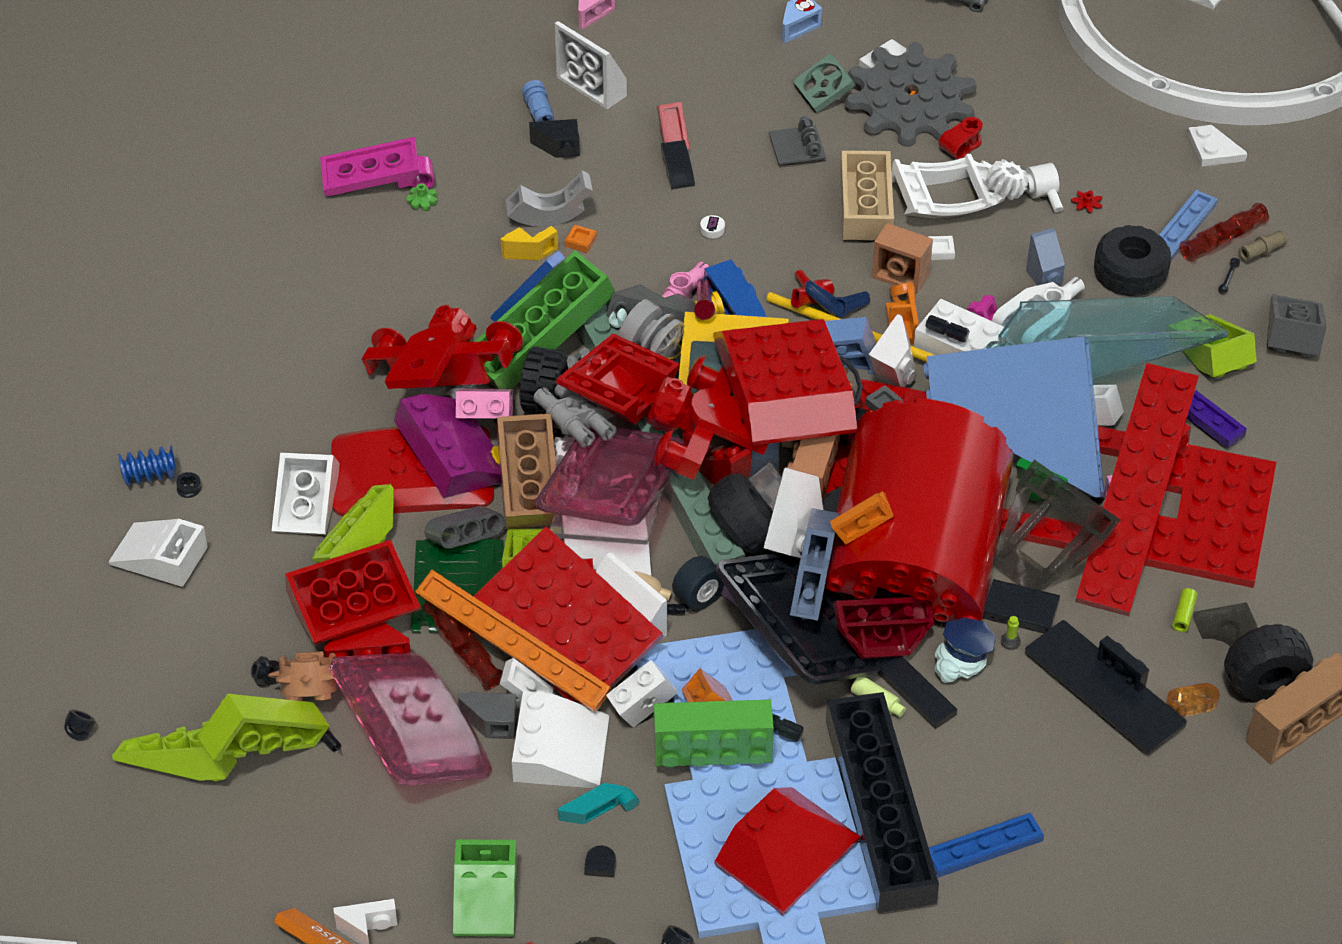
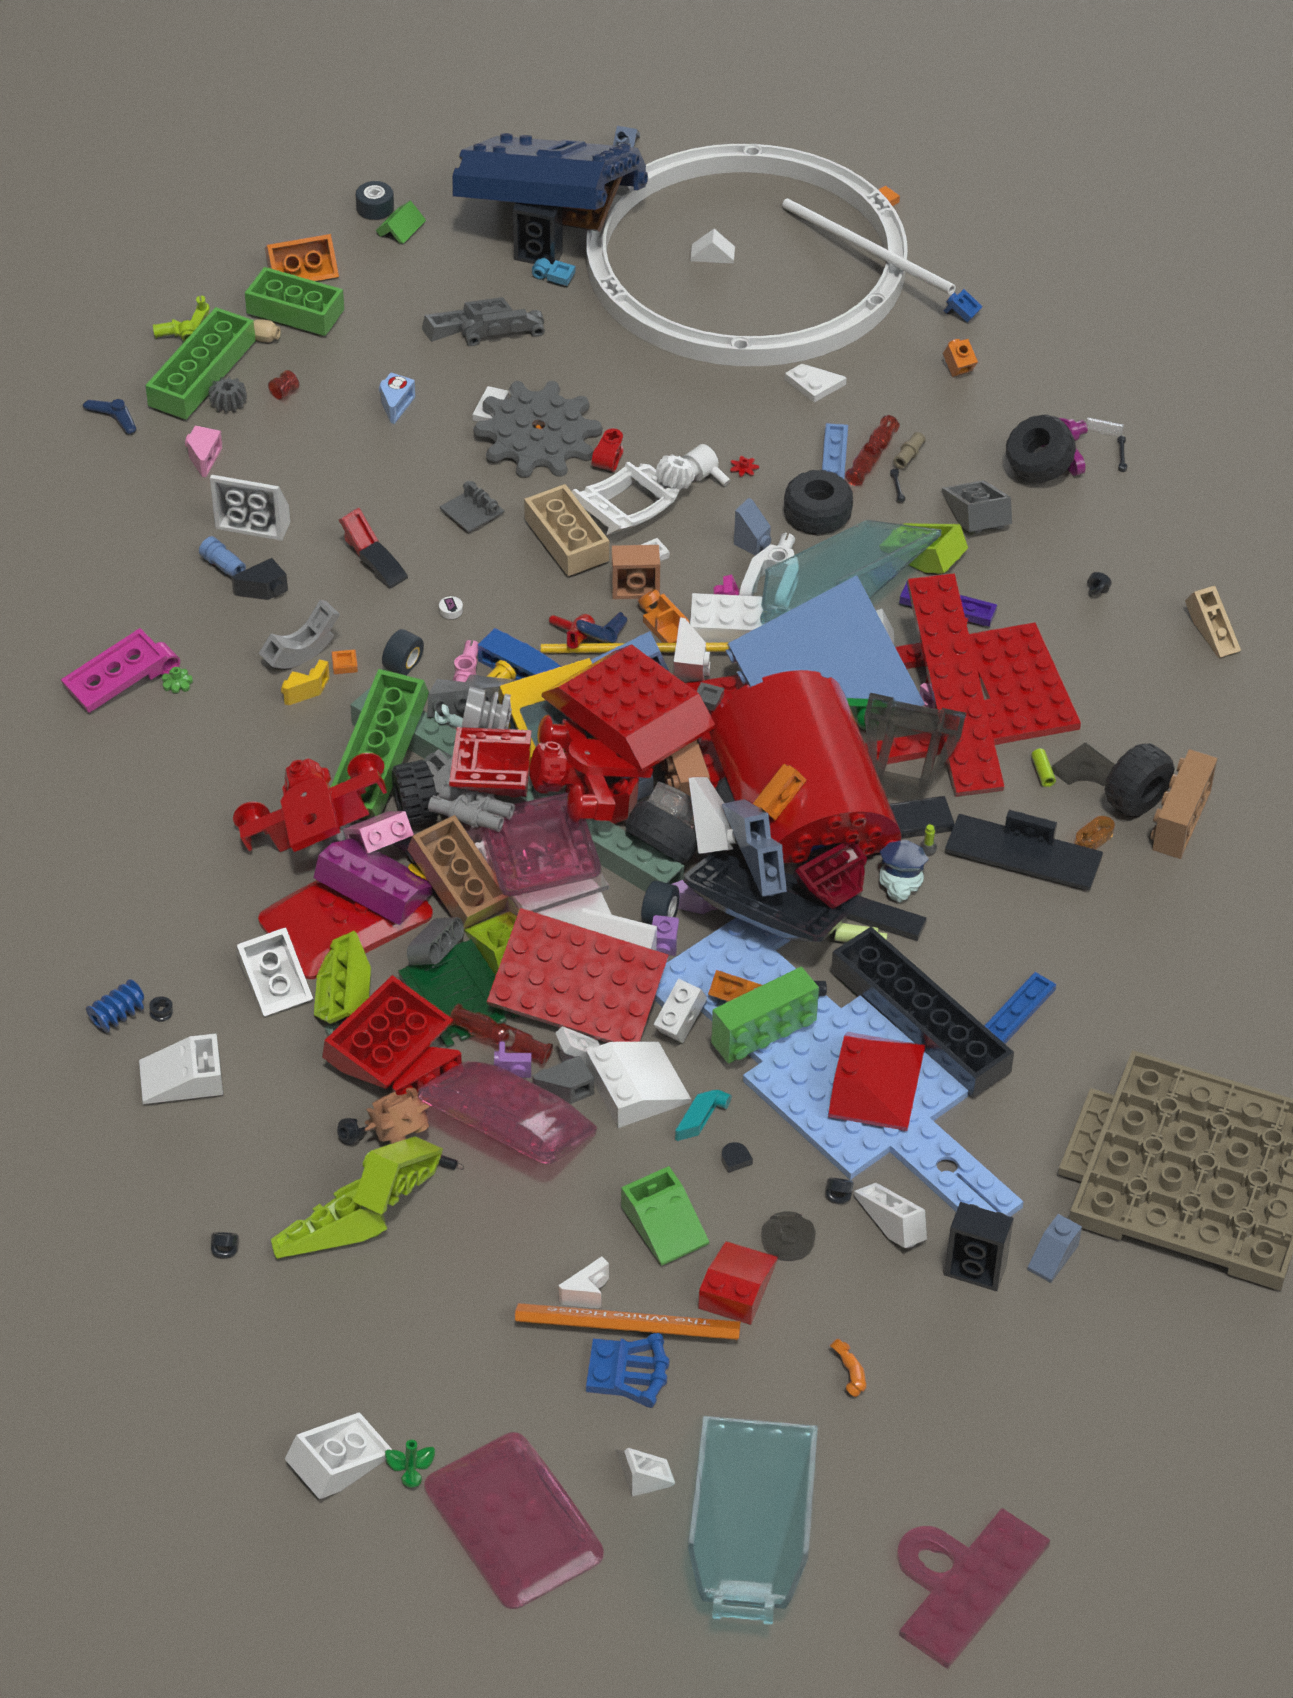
camera: 30 degrees left, 0 degrees up
(455, 676) = (513, 1062): none -> medium lavender bracket
(514, 641) = (547, 1013): orange tile -> none
(548, 266) = (348, 718): blue tile -> none
(633, 249) = (402, 652): none -> black wheel
(680, 614) = (666, 934): none -> medium lavender bracket
(704, 307) = (517, 675): dark red axle -> none
(832, 94) = (445, 439): sand green piece -> none
(943, 327) = (715, 615): black piece -> none

